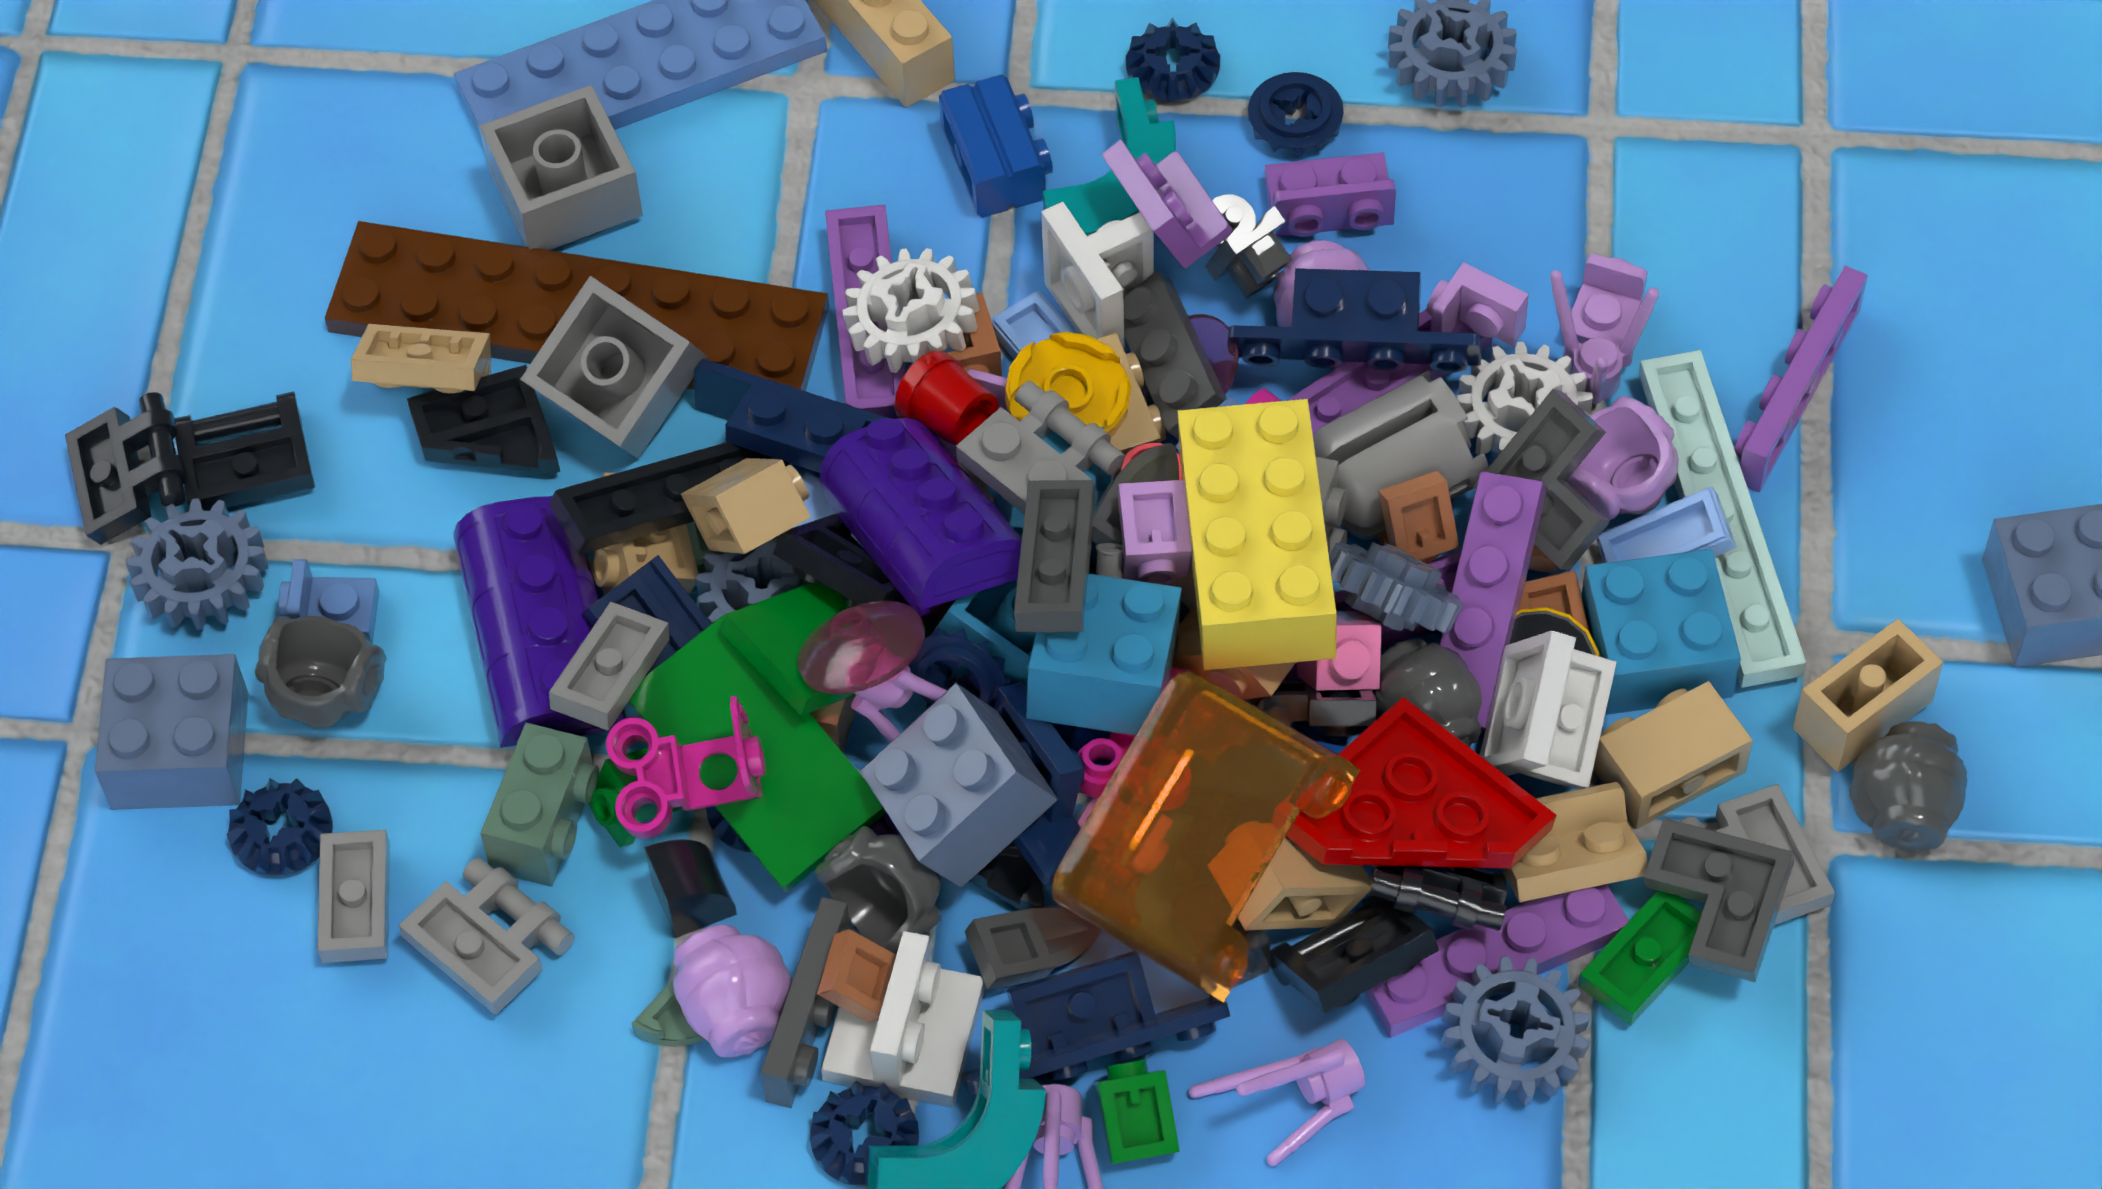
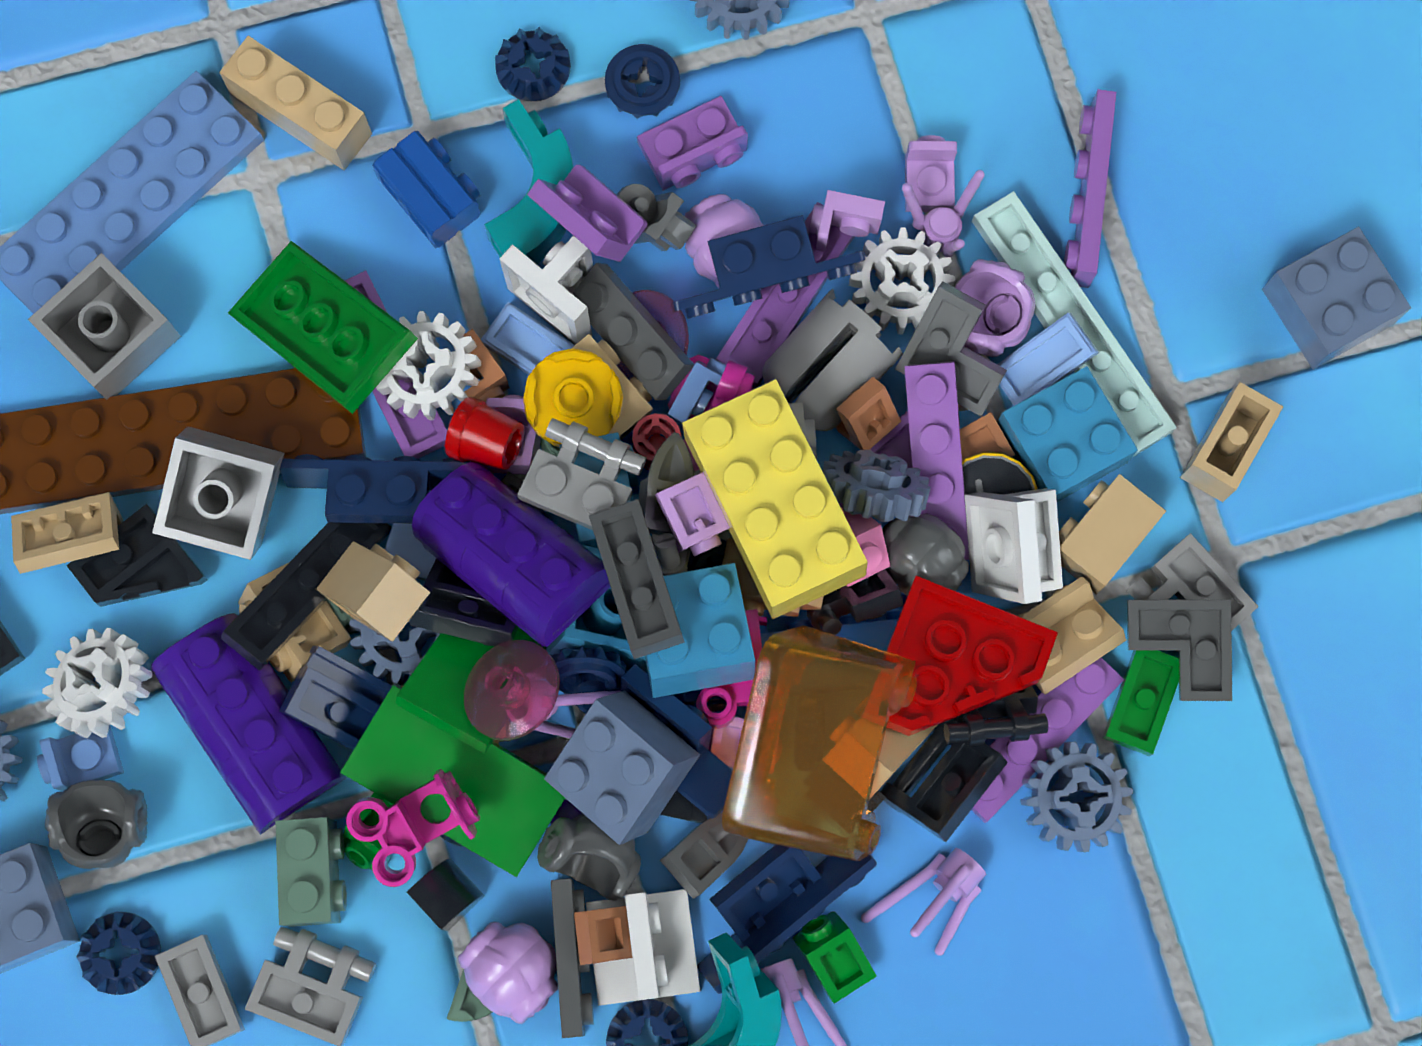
camera: 25 degrees left, 20 degrees up
(386, 527) = (77, 697): none -> white gear
(609, 666) = (322, 759): light grey plate -> none
(808, 237) = (322, 326): none -> green tile
(1910, 786) = (1281, 501): dark grey hair -> none

